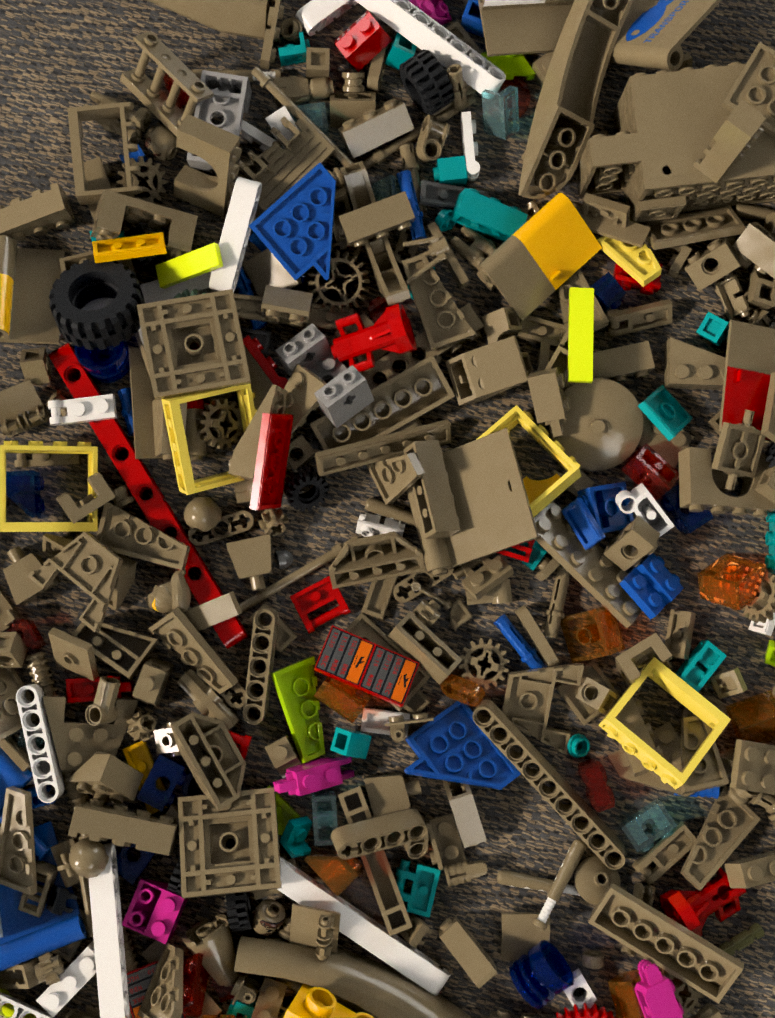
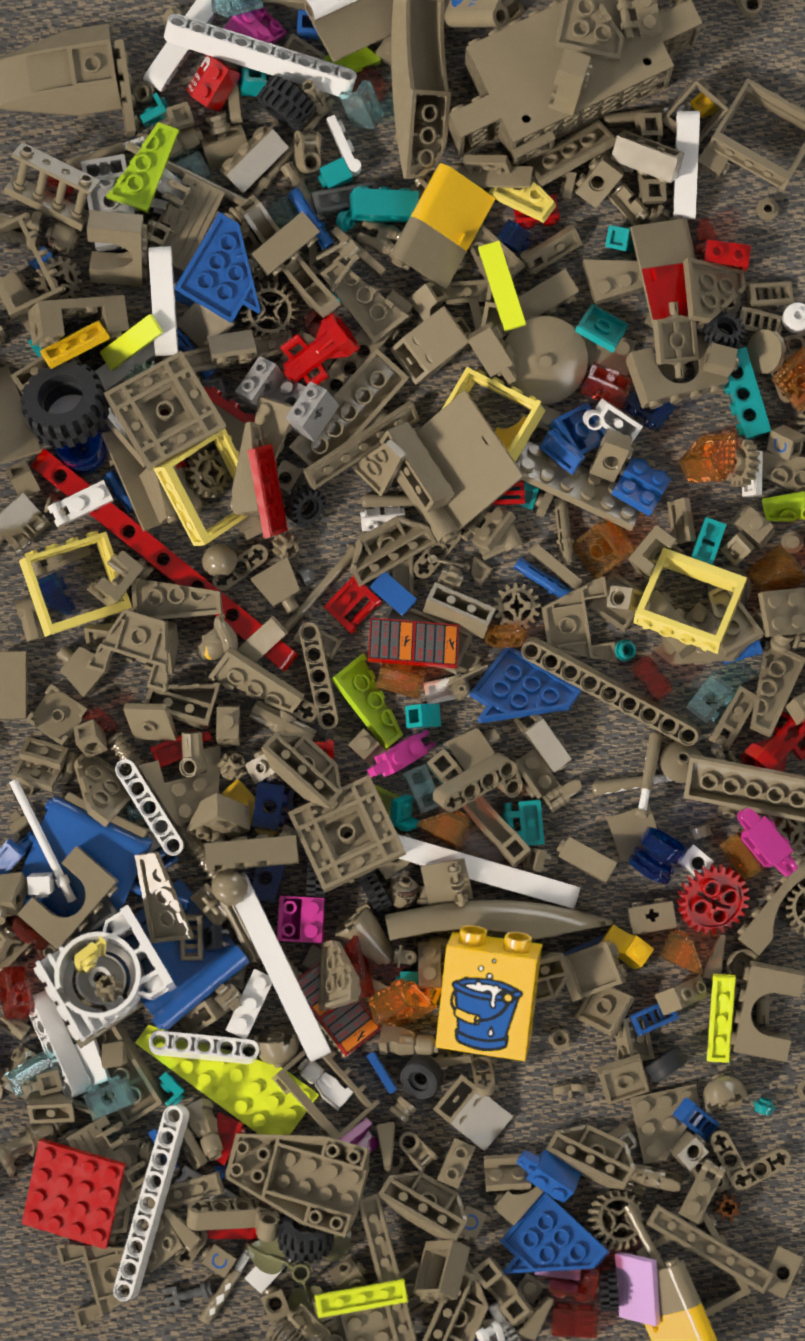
camera: 20 degrees left, 0 degrees up
(259, 103) = (143, 175): none -> lime wing
(364, 607) = (393, 593): none -> blue tile
(751, 663) = (753, 526): none -> dark tan torso

